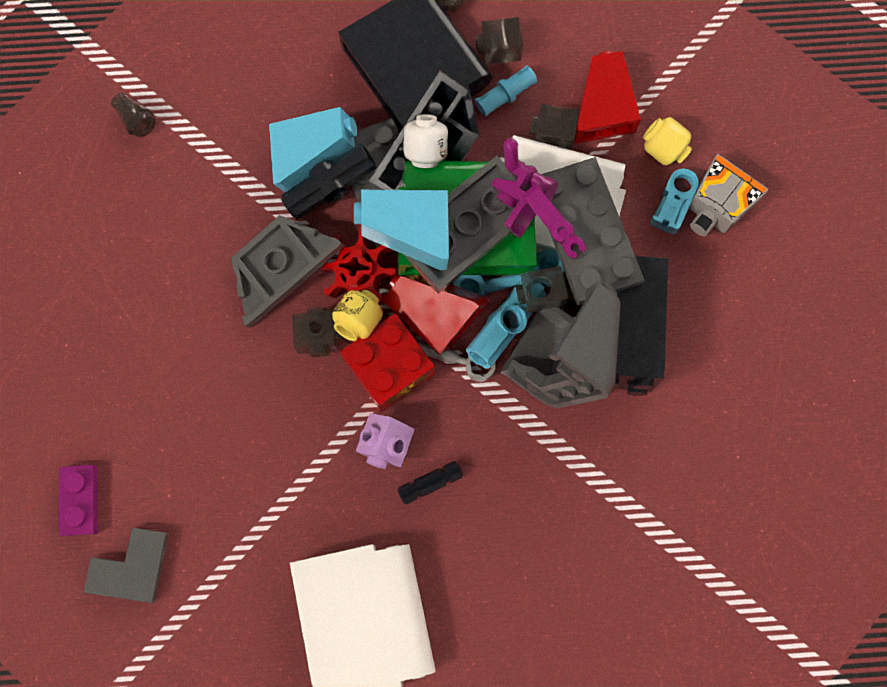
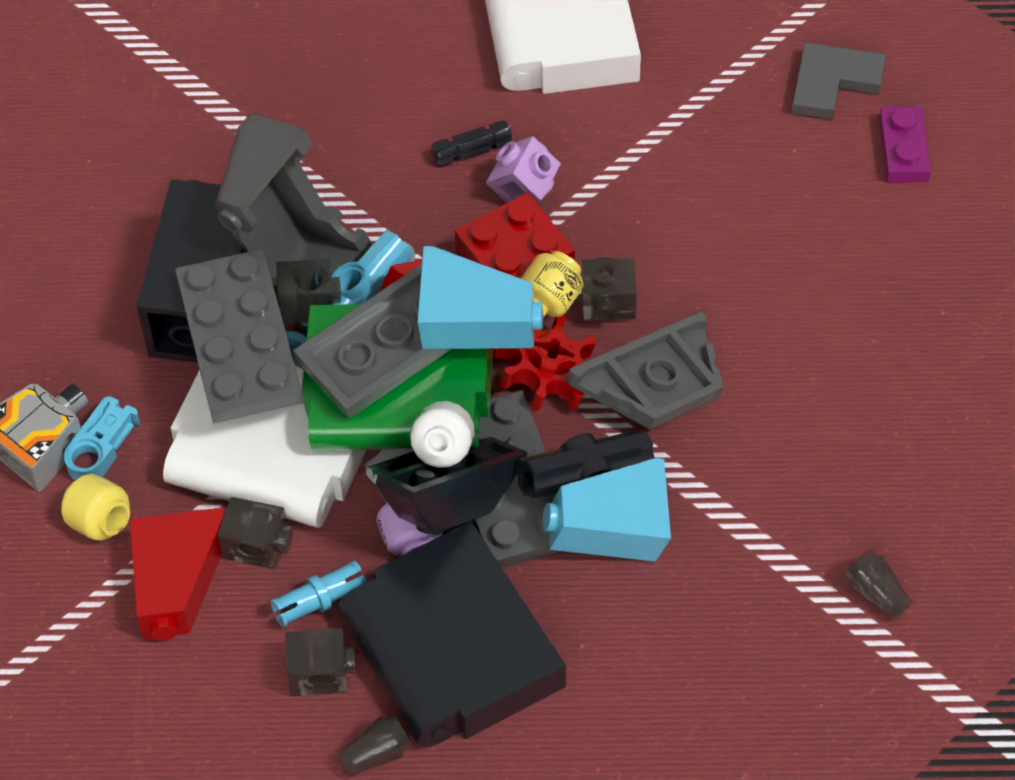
camera: 175 degrees left, 20 degrees down
(531, 197) = (308, 325): magenta piece -> none

